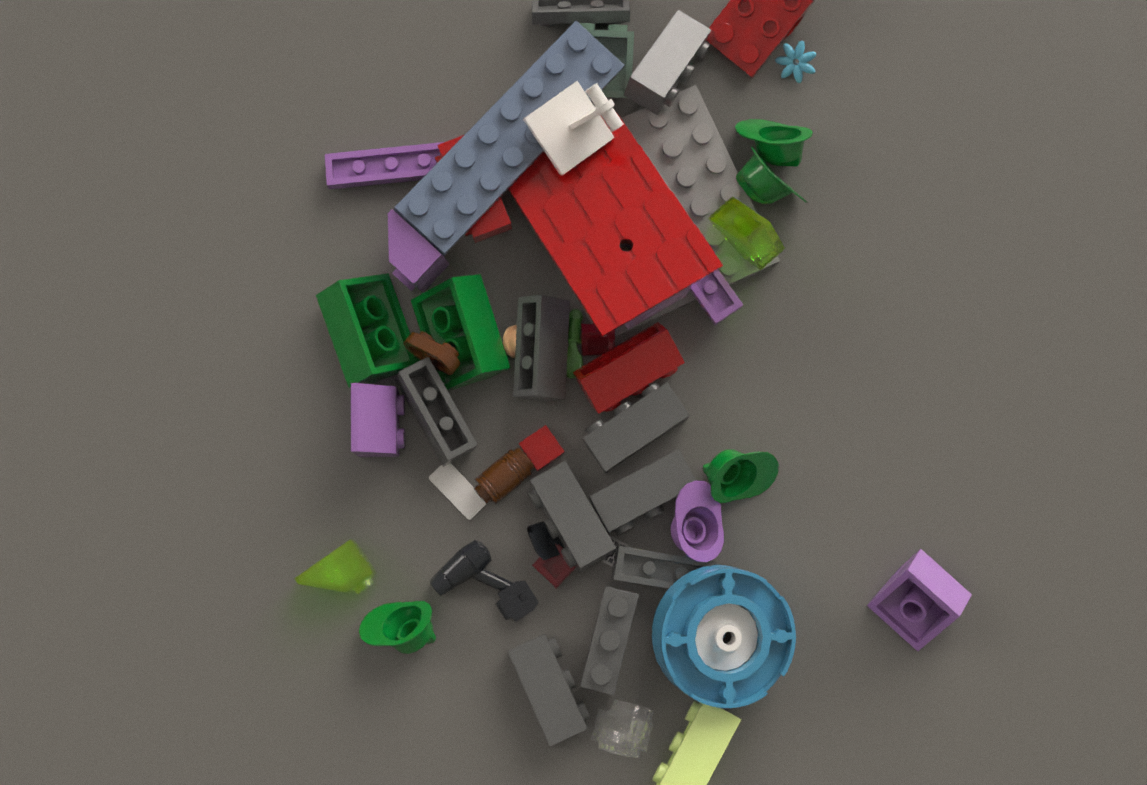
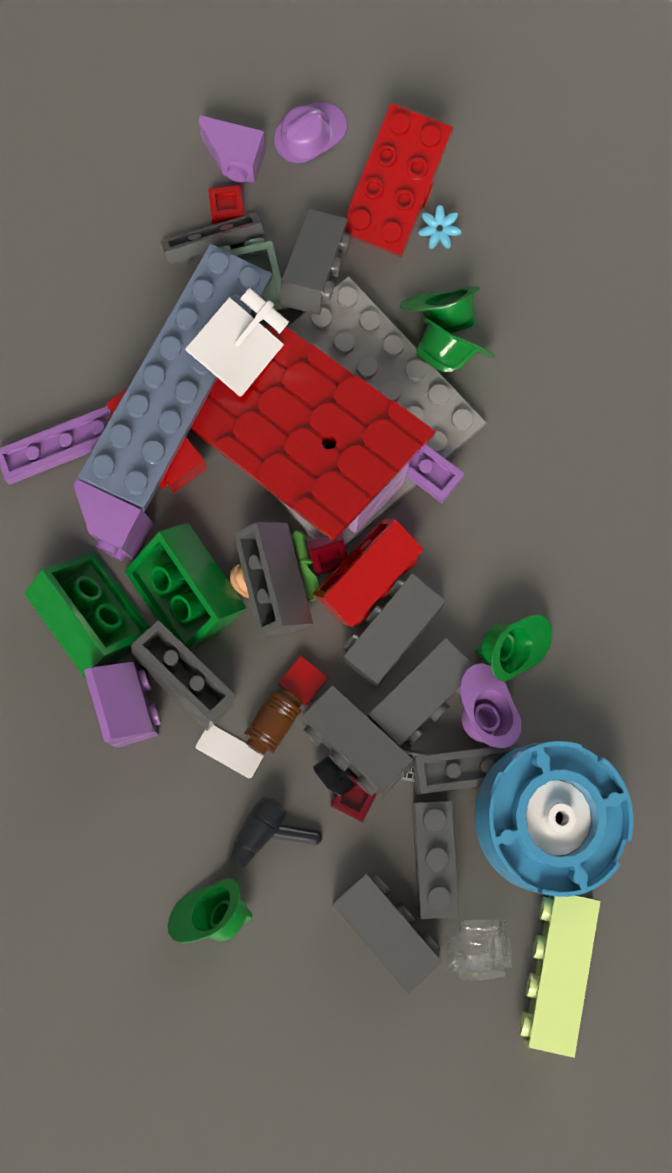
camera: 15 degrees left, 5 degrees down
(340, 570) = (130, 873): clear neon green slope -> none
(443, 356) = (172, 615): reddish brown plate -> none
(516, 601) = (325, 848): black piece -> none
(747, 232) = (447, 401): clear neon green slope -> none

